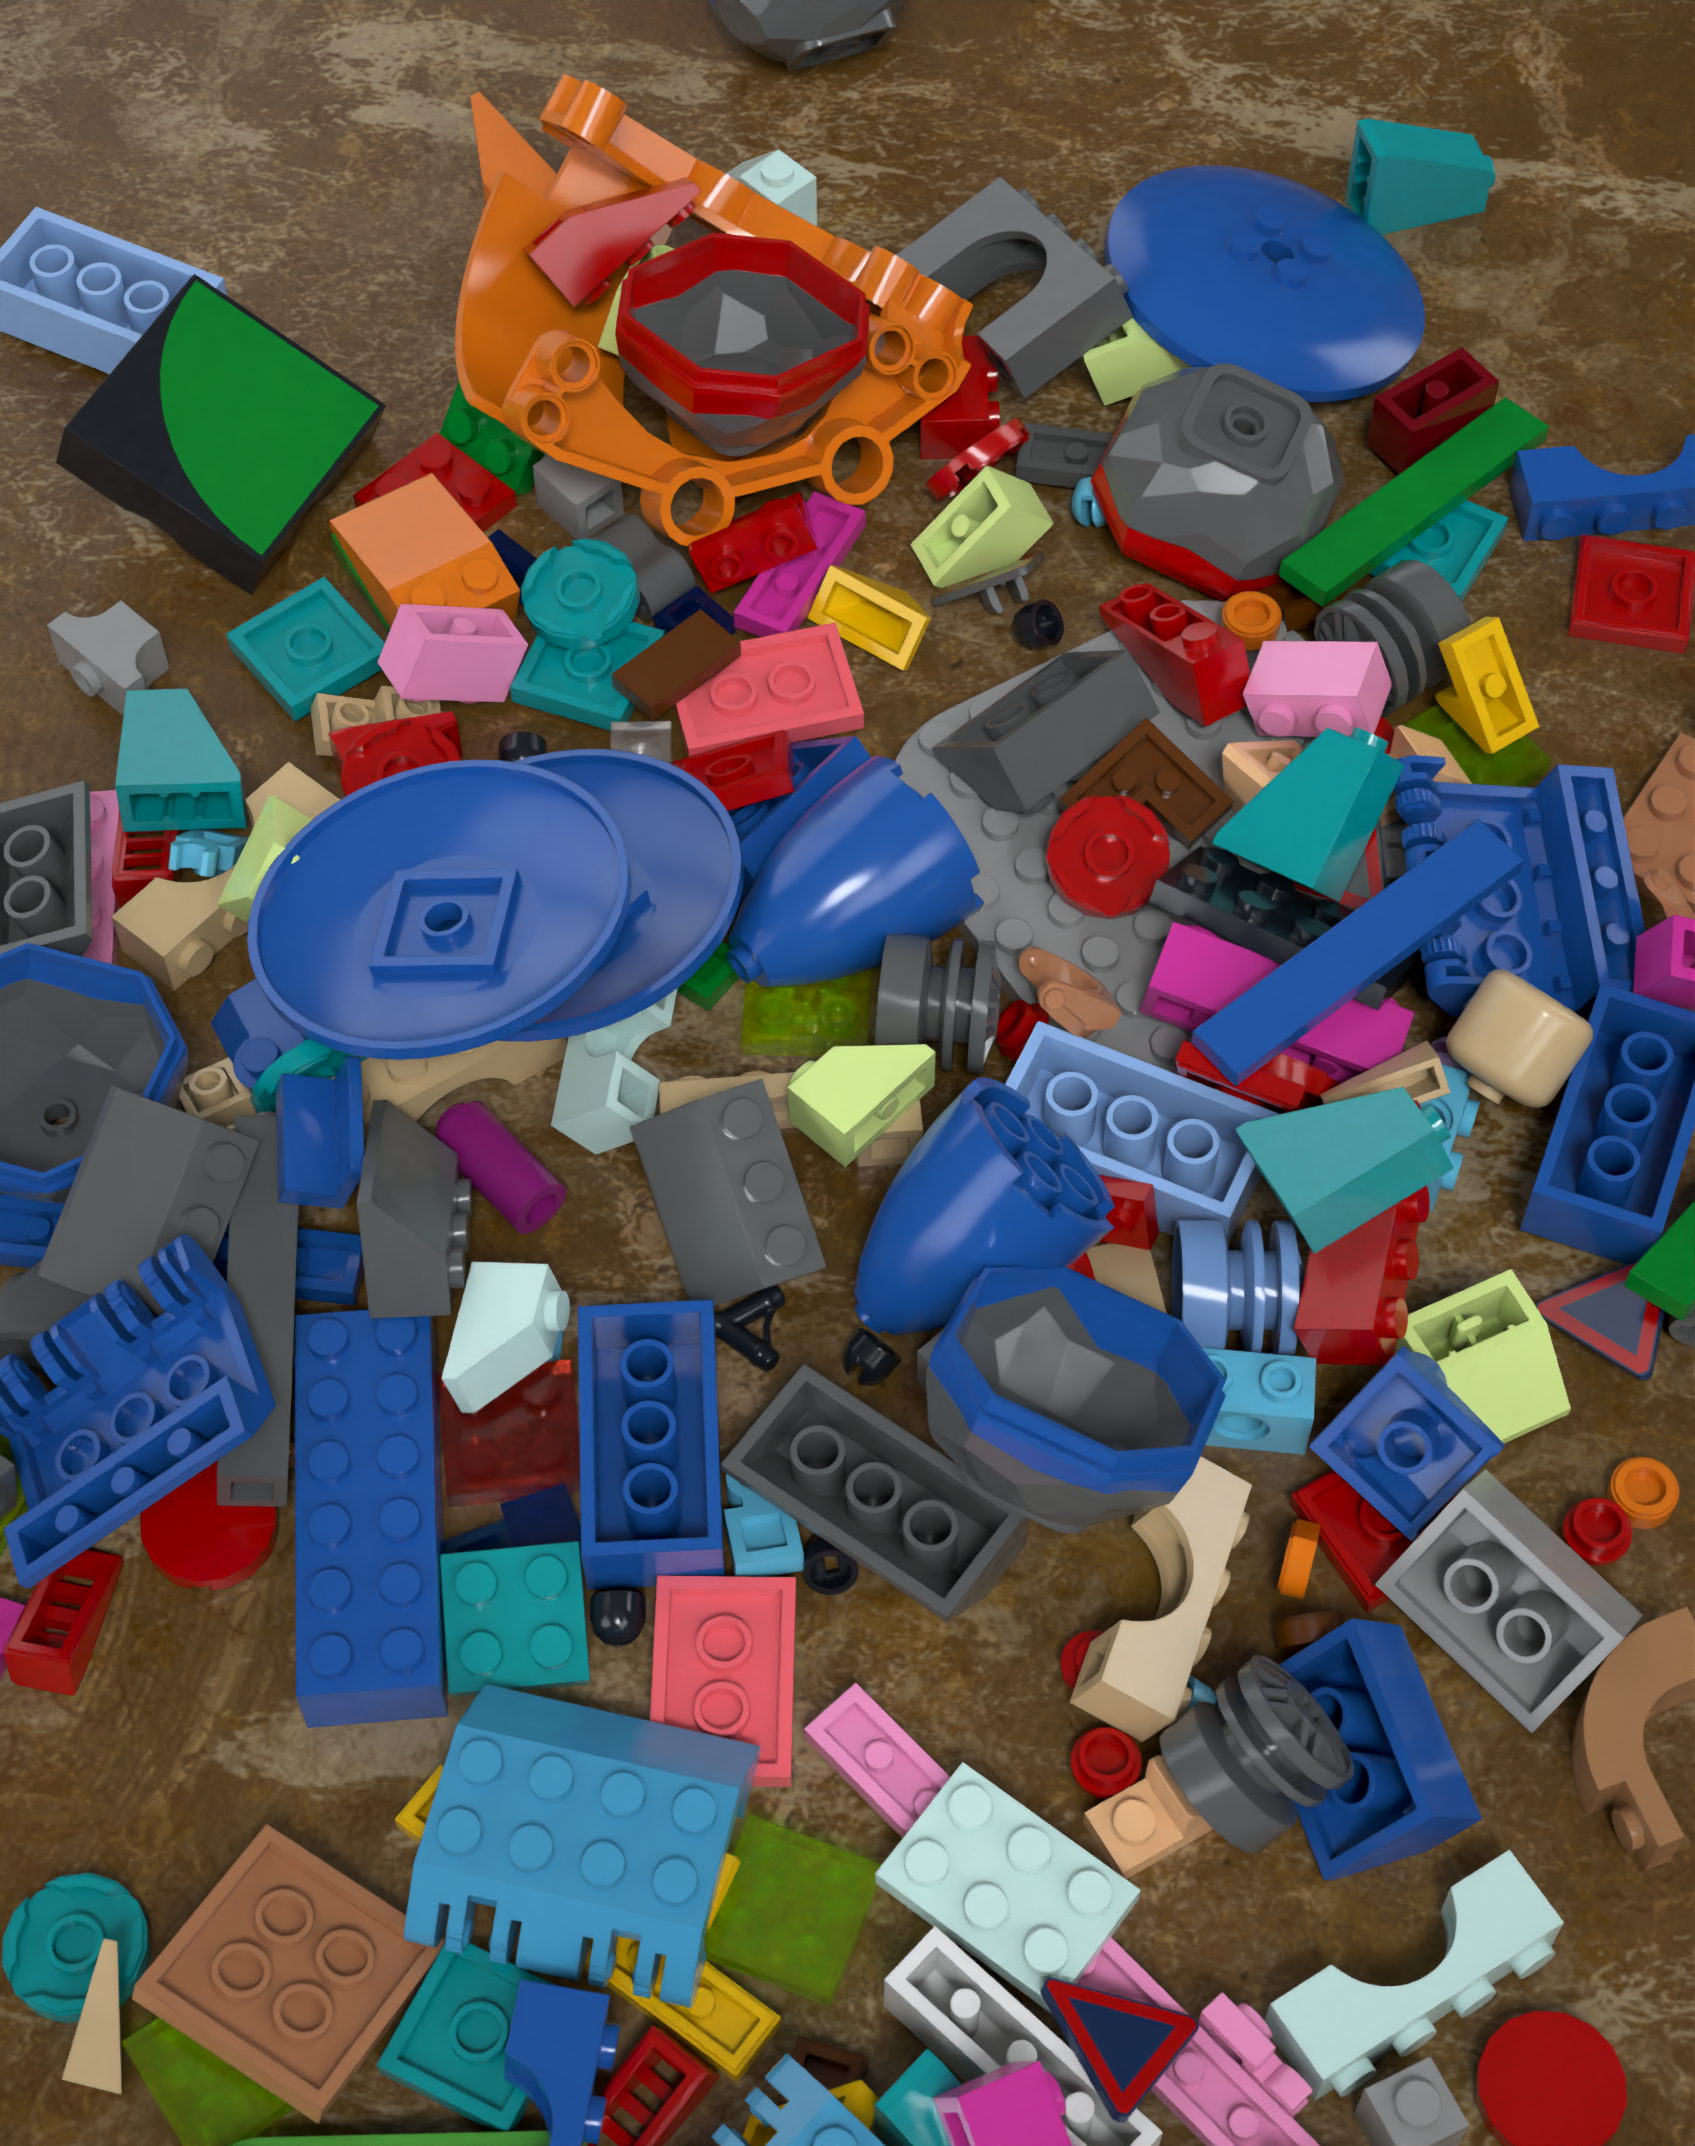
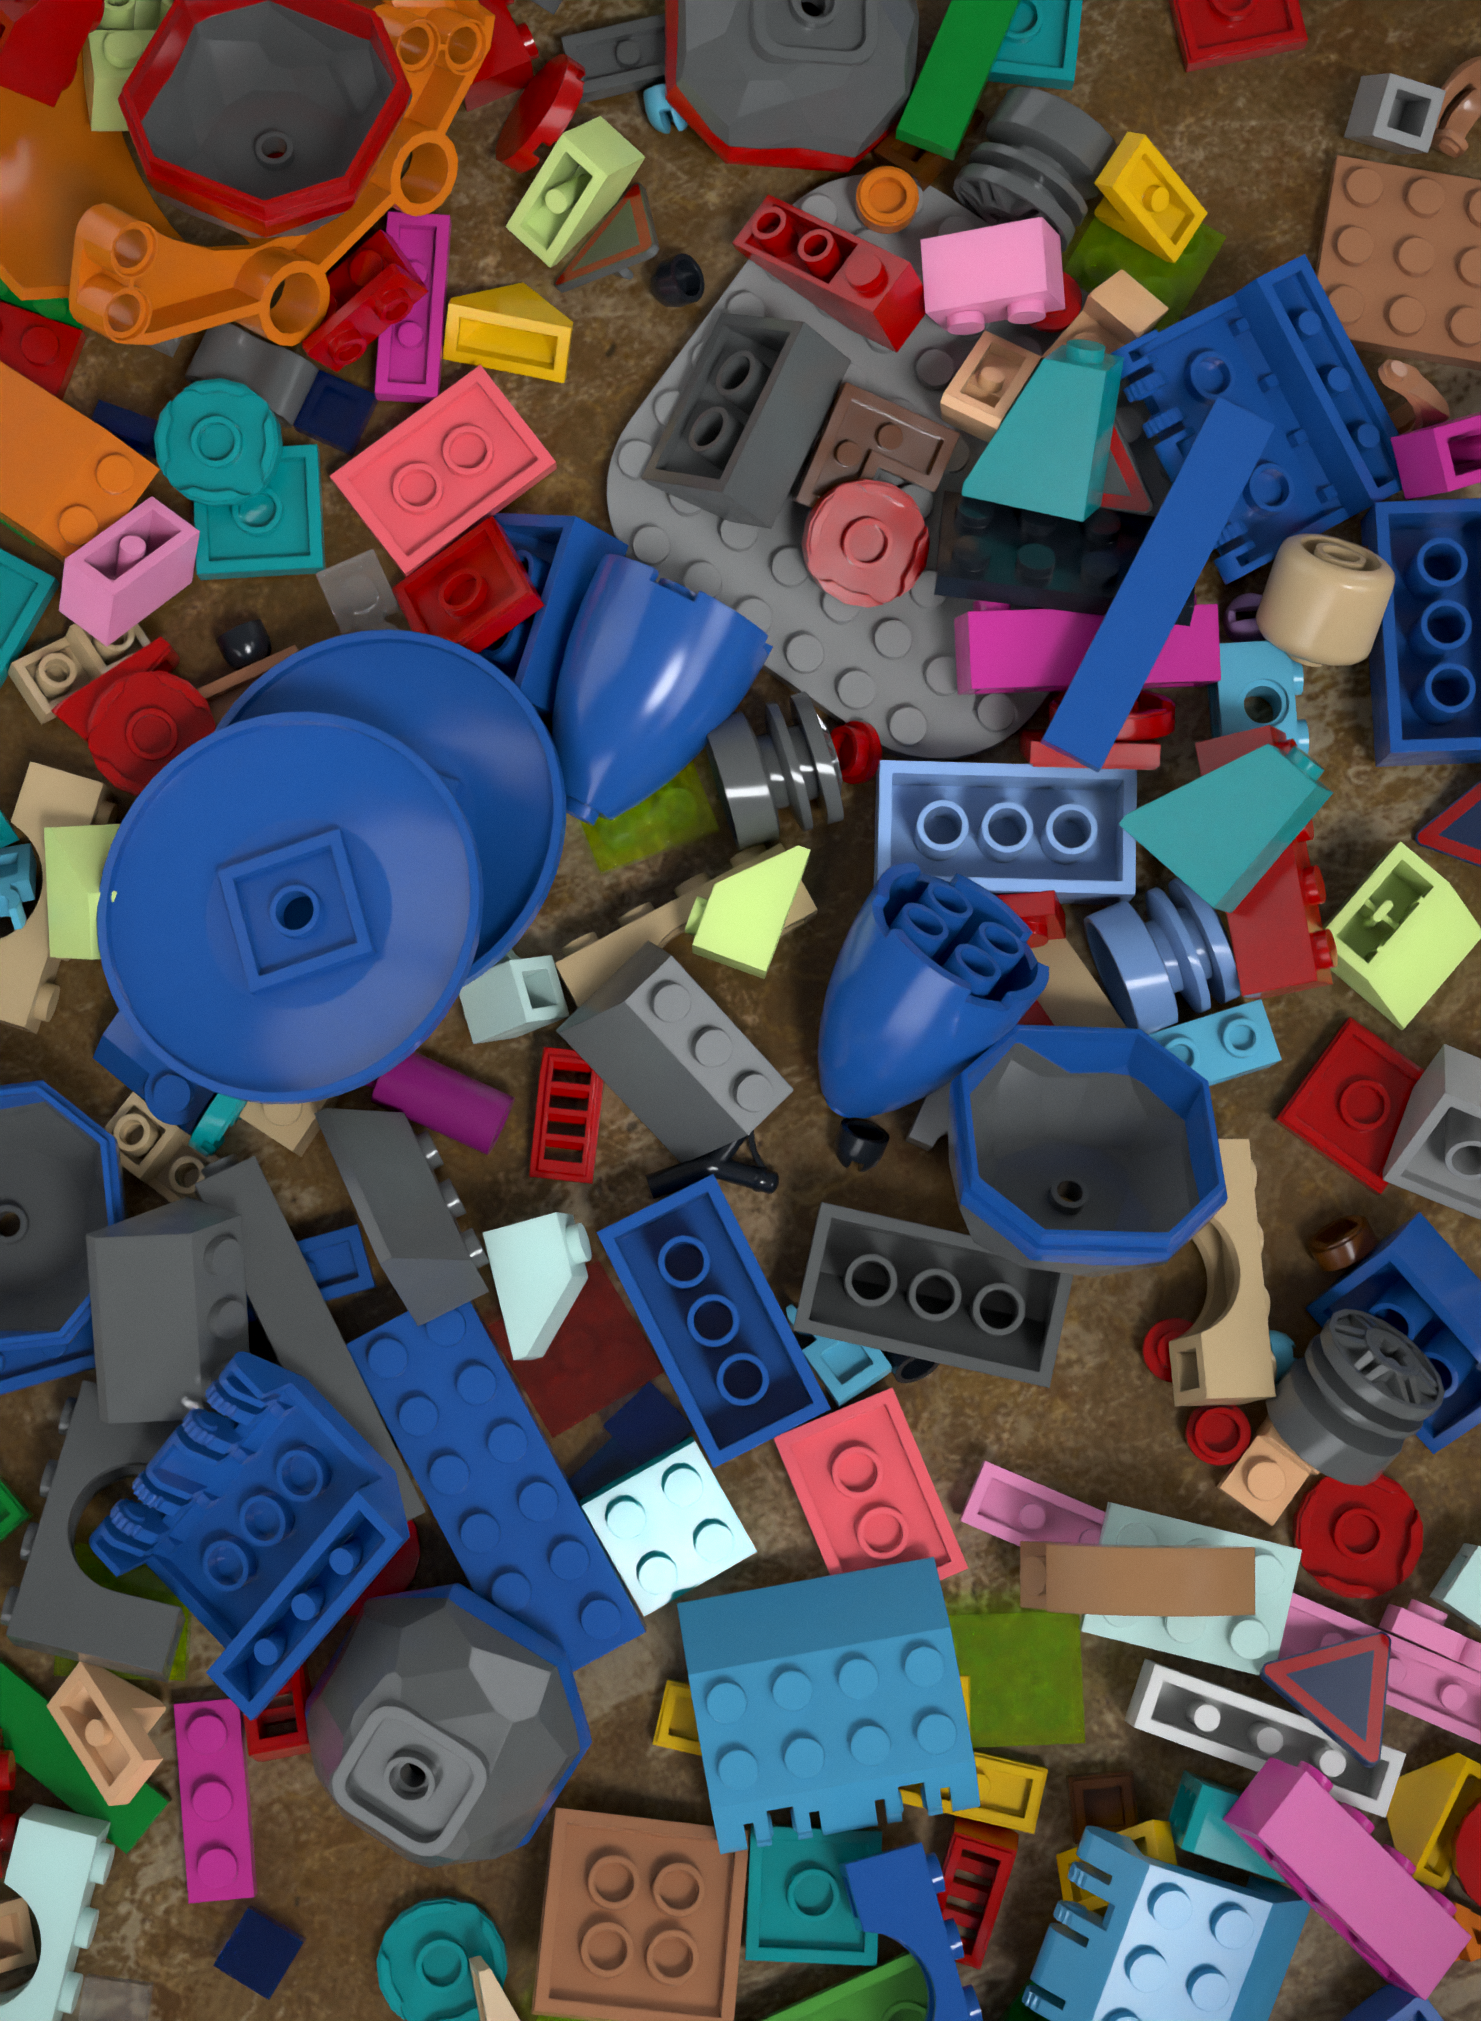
camera: 30 degrees left, 25 degrees up
(235, 1697) = (463, 1698): none -> dark grey rock
(320, 1136) = (287, 1175): blue panel -> none
(617, 1616) = (754, 1485): black hinge -> none
(626, 1190) = (563, 1170): none -> red slope
(676, 664) = (351, 485): reddish brown tile -> none
(959, 1816) = (1137, 1579): none -> medium nougat arch
(1069, 992) = (888, 700): nougat helmet -> none
(1211, 1924) = (1358, 1536): none -> red tile
(1298, 1559) = (1309, 1180): orange tile -> none
(1407, 1441) = (1368, 1048): blue slope -> none
(1415, 1070) = (1226, 696): tan piece -> none

